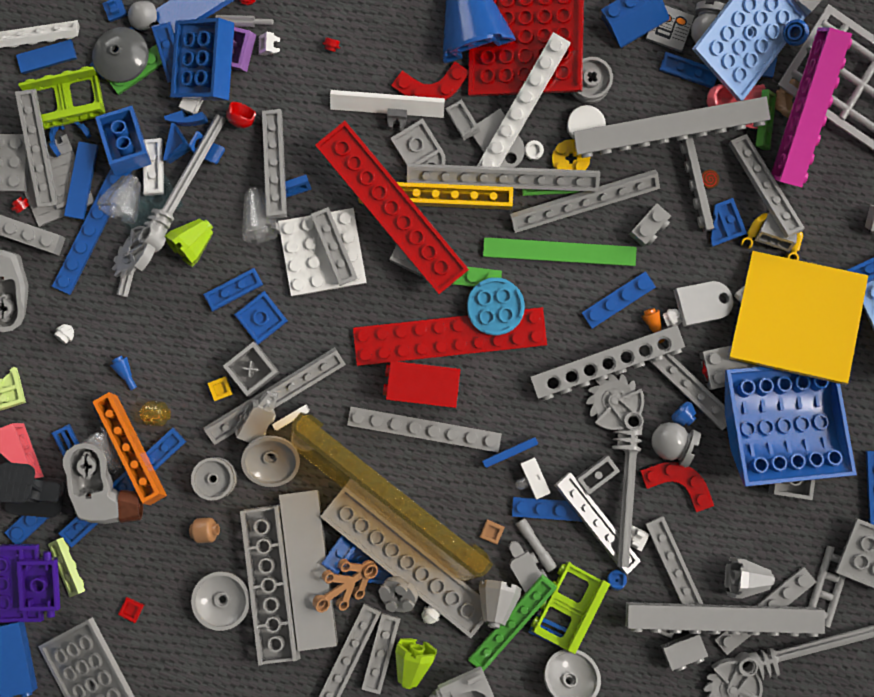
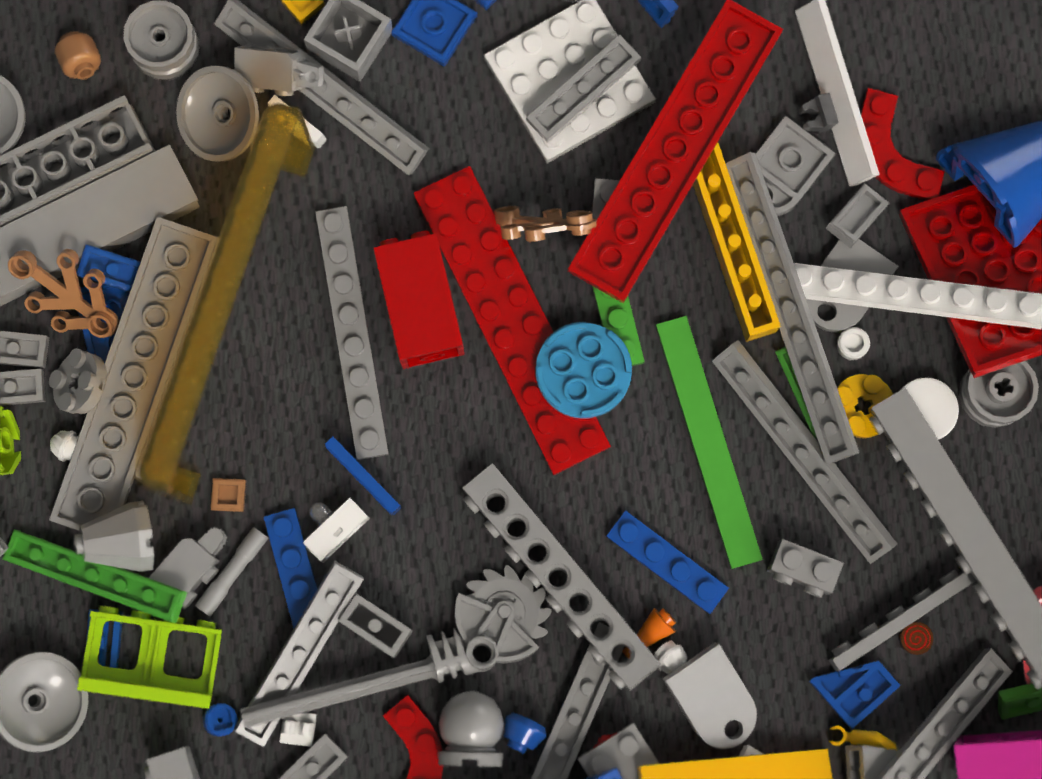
camera: 70 degrees right, 5 degrees down
(407, 298) = (512, 224): none -> medium nougat plant

